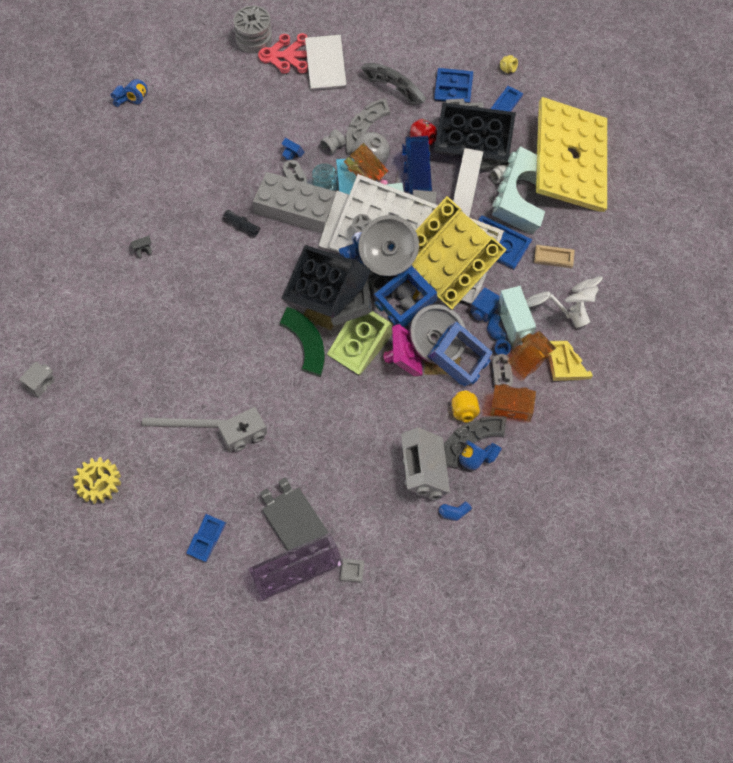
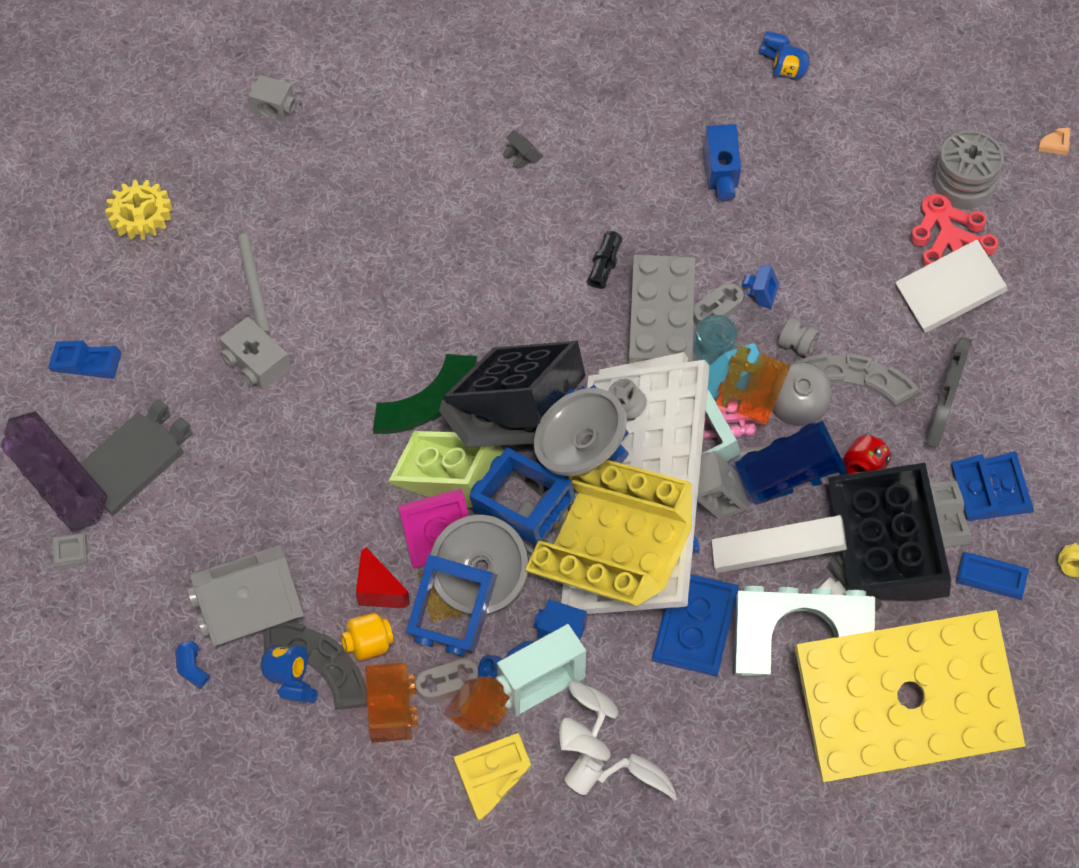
camera: 75 degrees right, 5 degrees down
(198, 142) = (722, 144): none -> blue torso
(430, 394) = (377, 585): none -> red slope
(554, 256) = (697, 716): tan tile -> none

